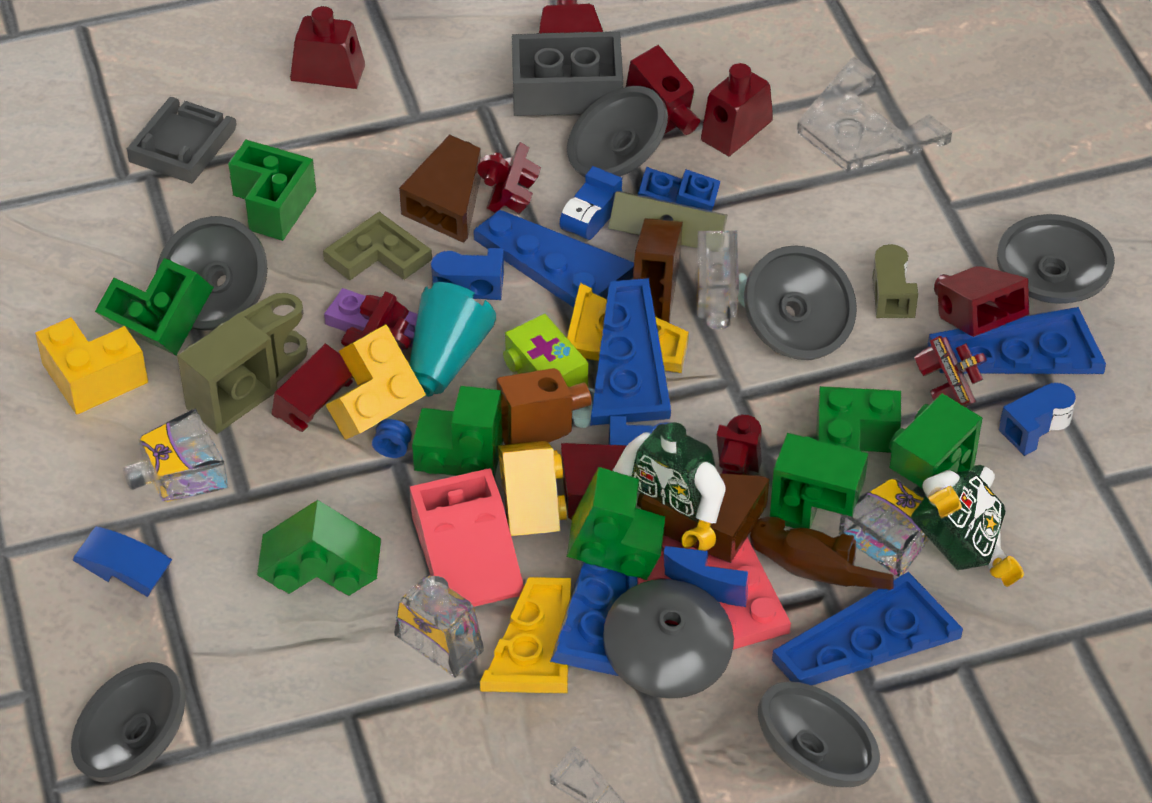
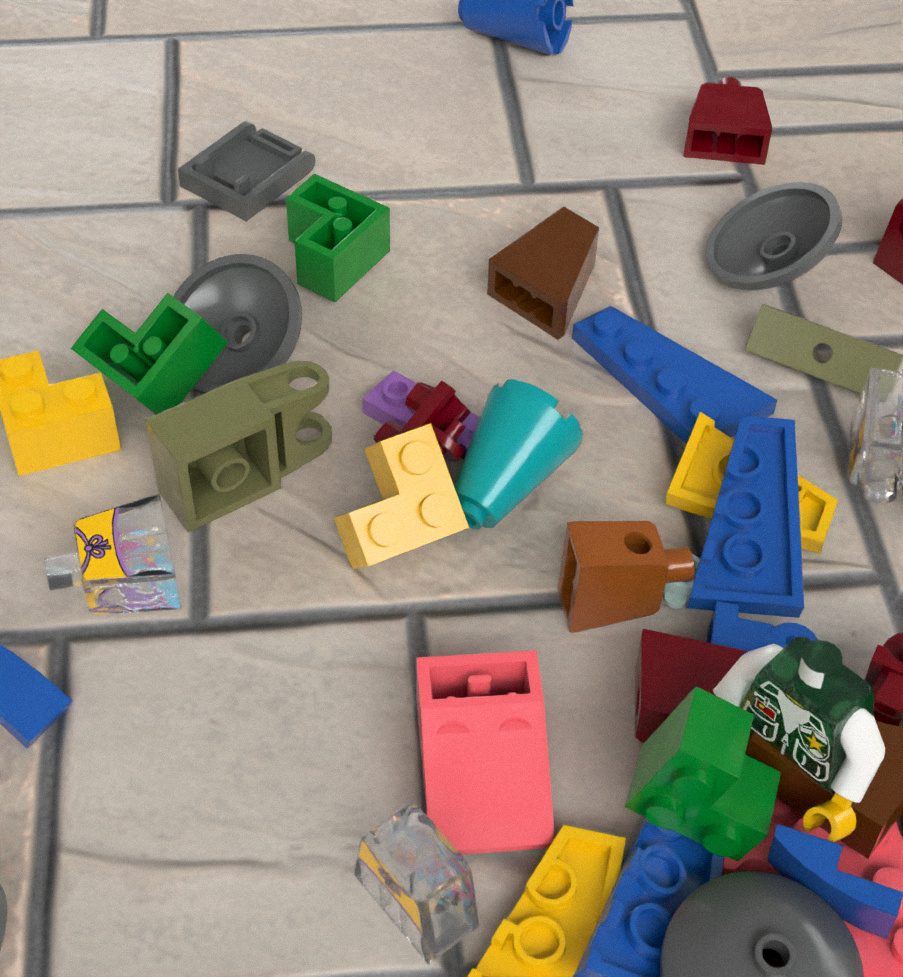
camera: 10 degrees right, 0 degrees up
(311, 388) = (320, 491): dark red hinge -> none
(322, 546) = (274, 724): green brick -> none
(327, 51) = (437, 95): dark red torso -> none
(377, 241) = (452, 320): olive plate -> none
(391, 438) = (412, 579): blue bush -> none
(461, 438) = (506, 598): green brick -> none
(476, 272) = (568, 378): blue leg -> none
(506, 175) = (631, 270): dark red hips -> none
(530, 488) = (589, 688): yellow brick -> none
(543, 346) = (637, 488): lime brick -> none
(564, 71) = (716, 157): dark grey brick -> none
(591, 204) = (728, 316): blue leg -> none
(658, 259) = (808, 399): reddish brown slope -> none
(659, 73) = (839, 172): dark red torso -> none
(691, 190) = (857, 317): blue slope -> none

